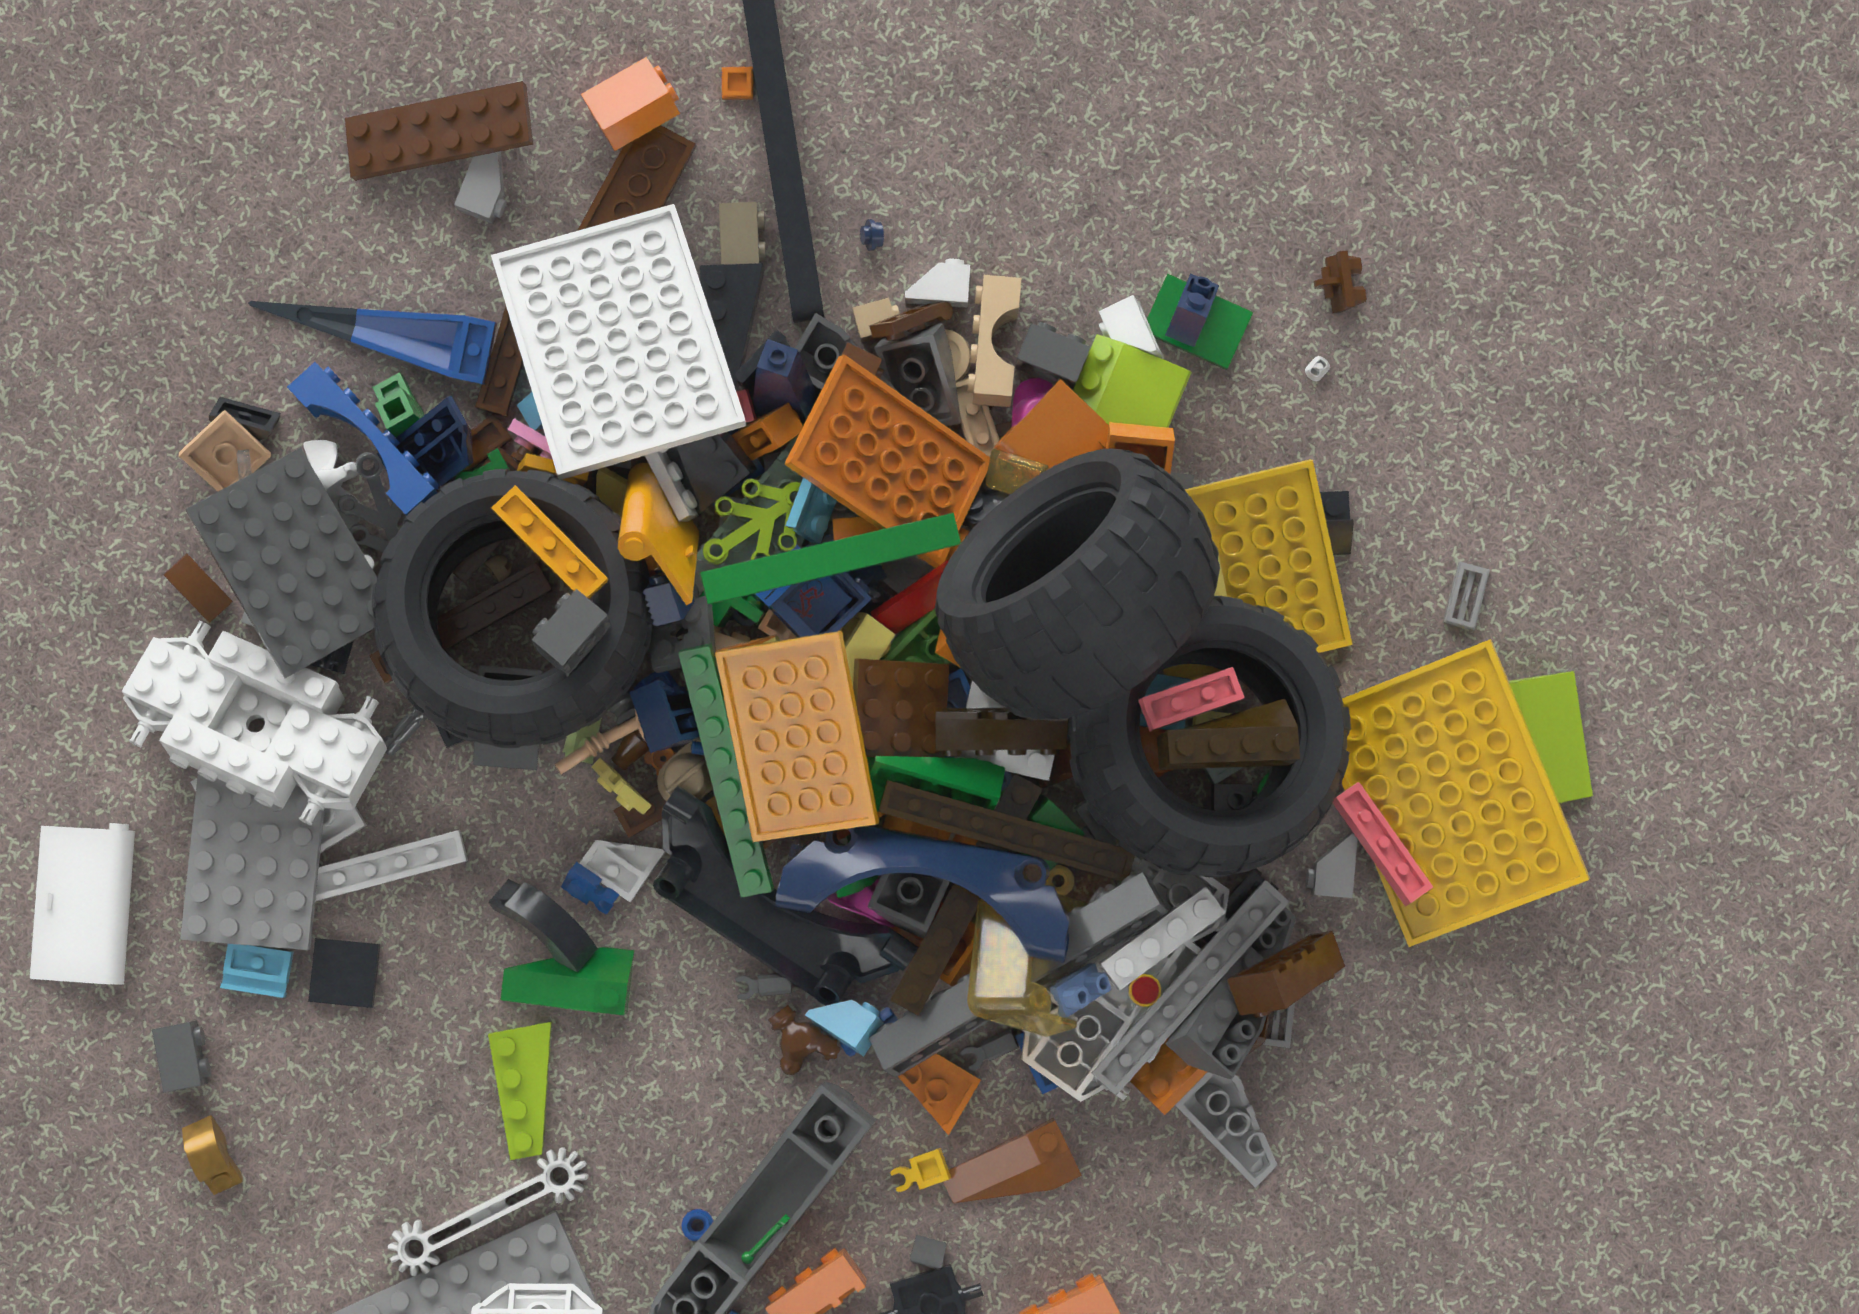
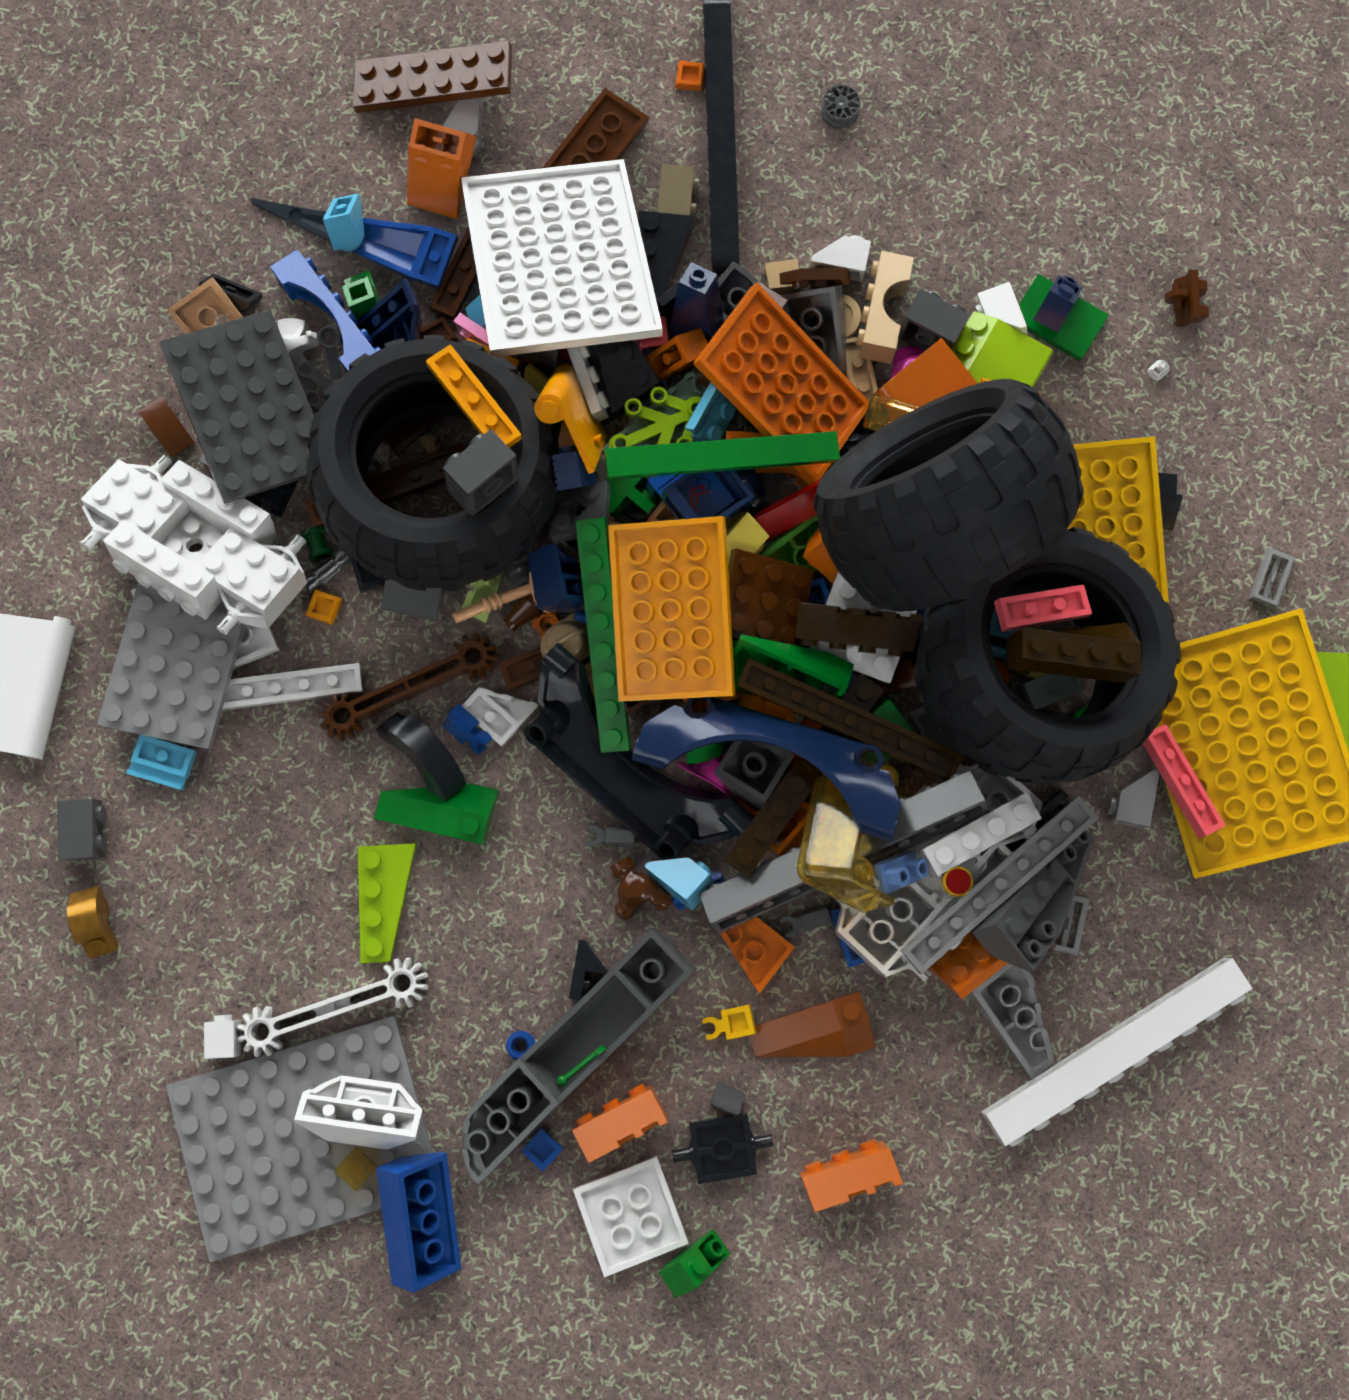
camera: 10 degrees right, 5 degrees down
(344, 972) = (239, 775): black tile -> none
(364, 322) = (345, 223): none -> medium azure slope
(373, 1260) = (221, 1037): none -> white brick
(390, 700) = (317, 543): none -> dark green bush
(408, 770) = (323, 607): none -> light orange tile
(461, 242) = (435, 167): none -> orange slope
(516, 850) = (407, 687): none -> reddish brown arm
(613, 781) = (512, 649): light yellow wing -> none
(632, 103) = (599, 74): brick -> none
(756, 1126) = (585, 961): none -> black slope
(872, 234) = (788, 209): dark blue plate -> none
(917, 100) = (840, 107): none -> dark grey wheel
(1286, 975) = (1086, 886): reddish brown wedge -> none
(1341, 1145) = (1116, 1051): none -> white brick

